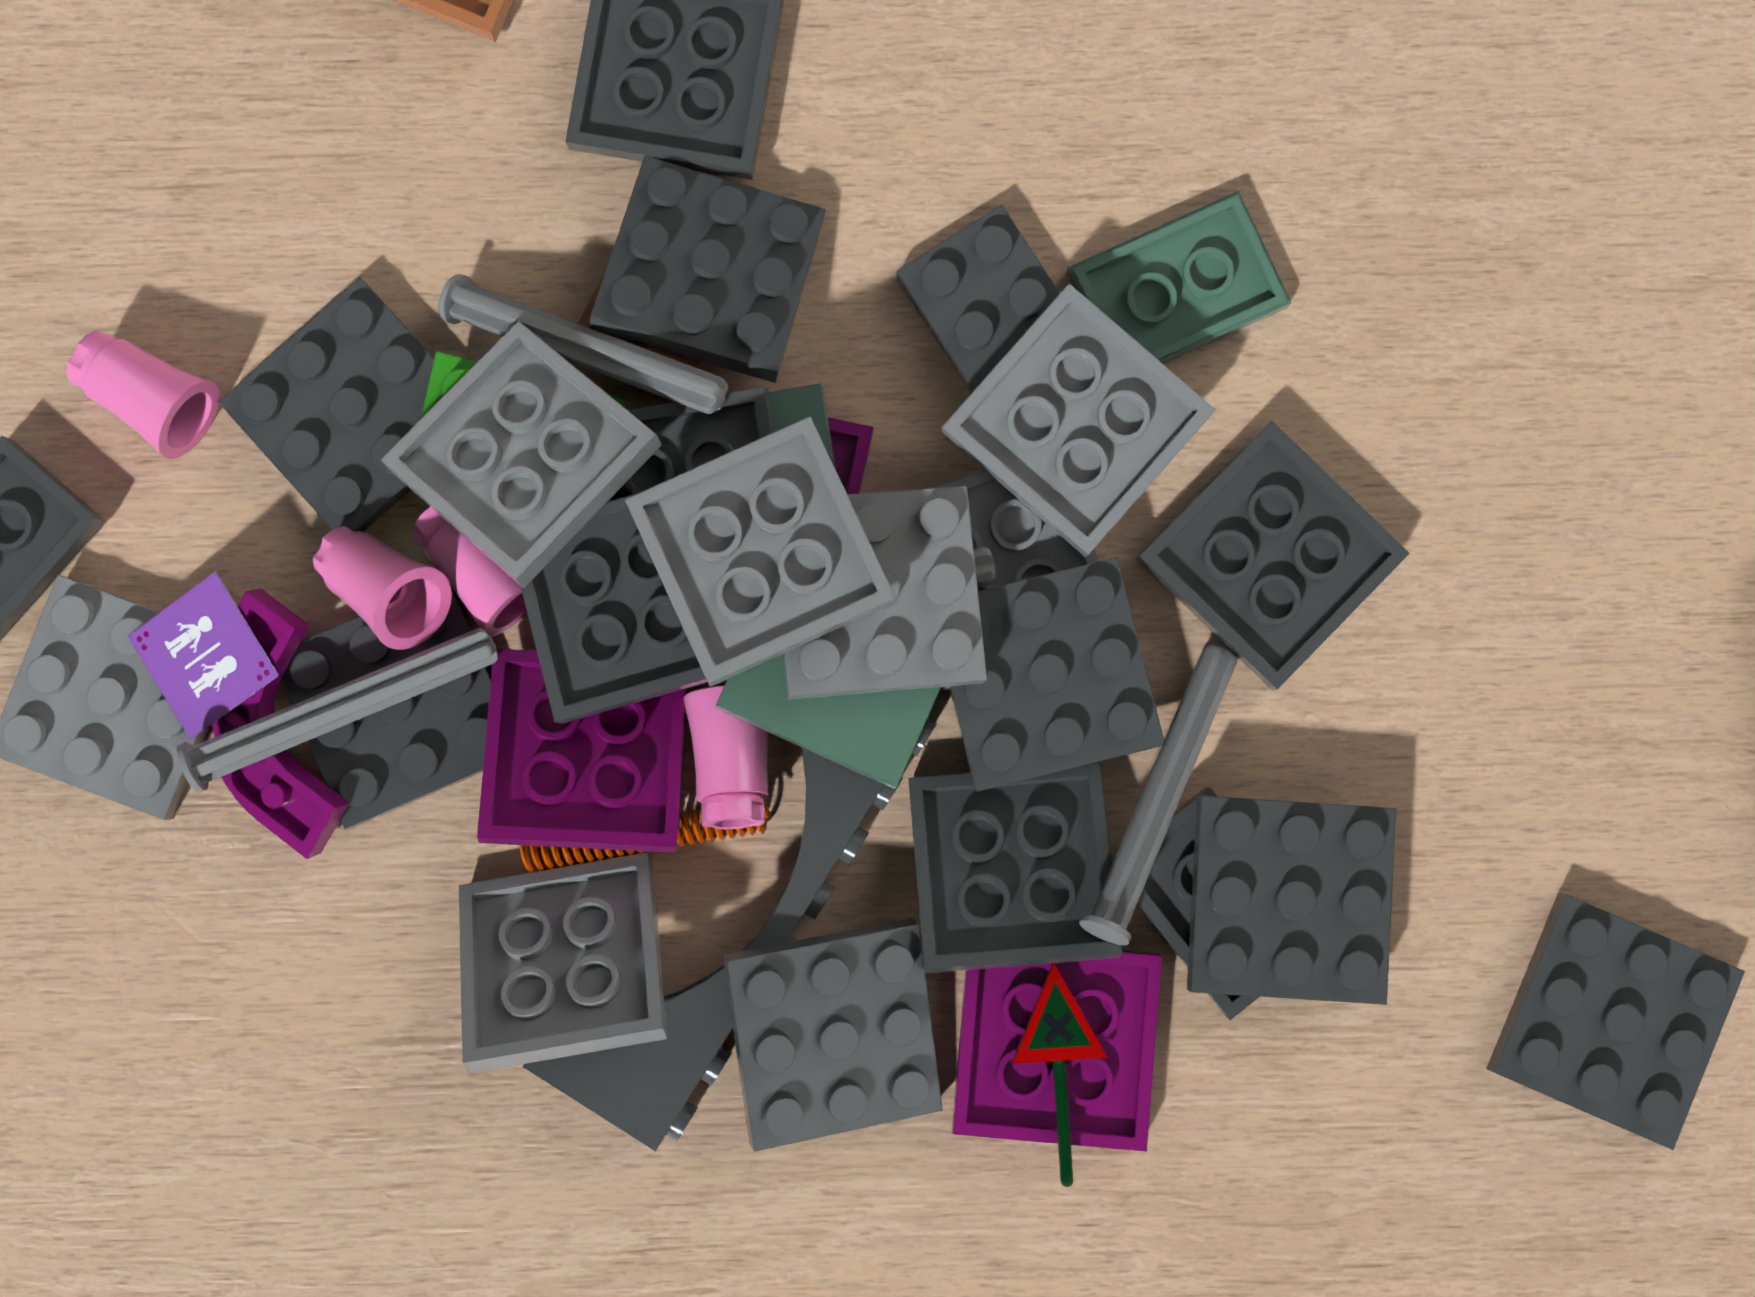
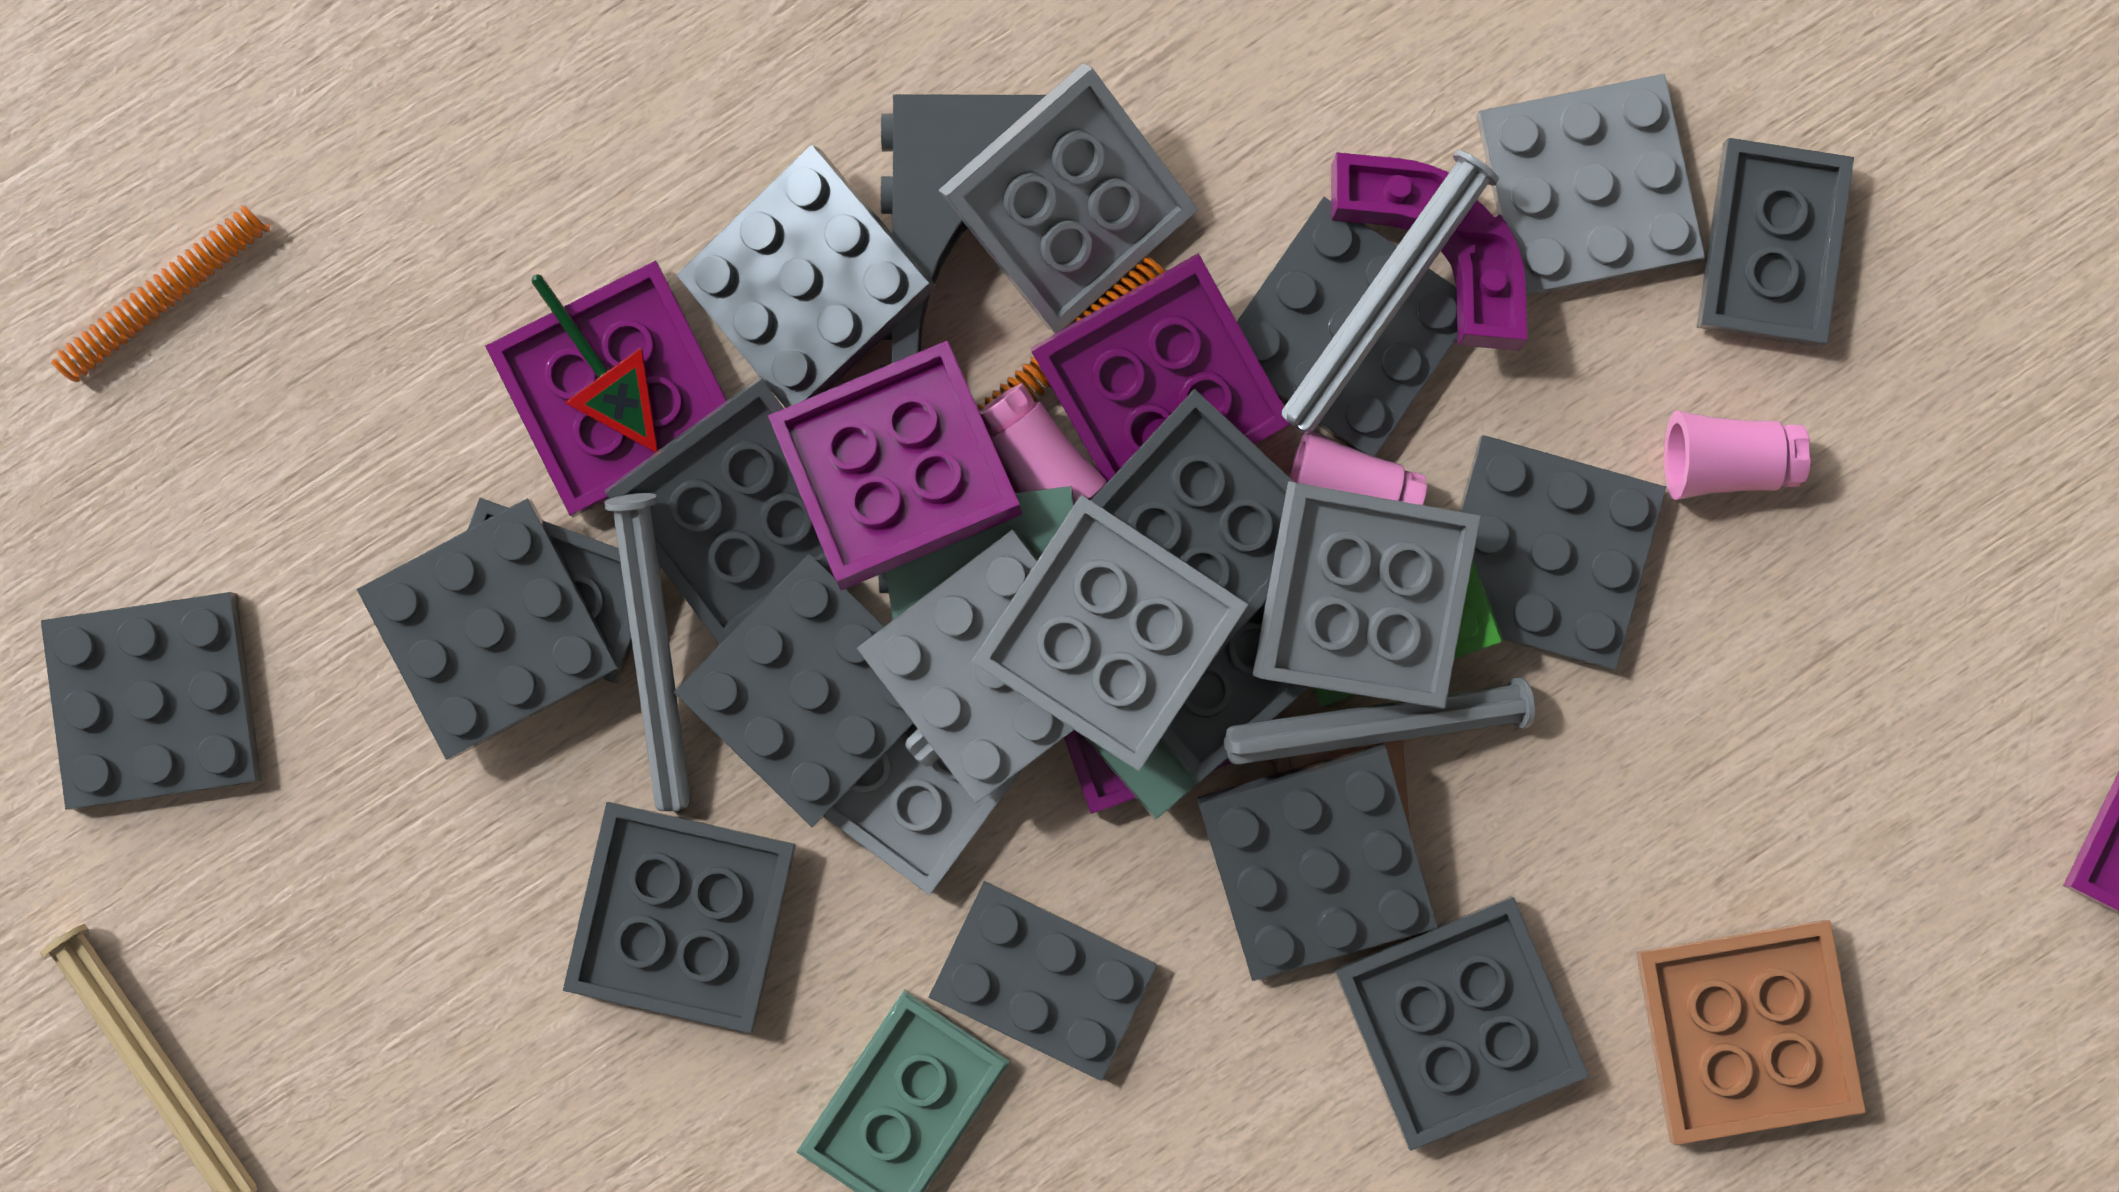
camera: 150 degrees right, 0 degrees up
(203, 655) = (1531, 265): medium lavender sticker -> none
(388, 590) = (1418, 415): bright pink plant -> none
(855, 817) = (894, 465): none -> magenta plate
(1077, 420) = (916, 924): light grey plate -> none

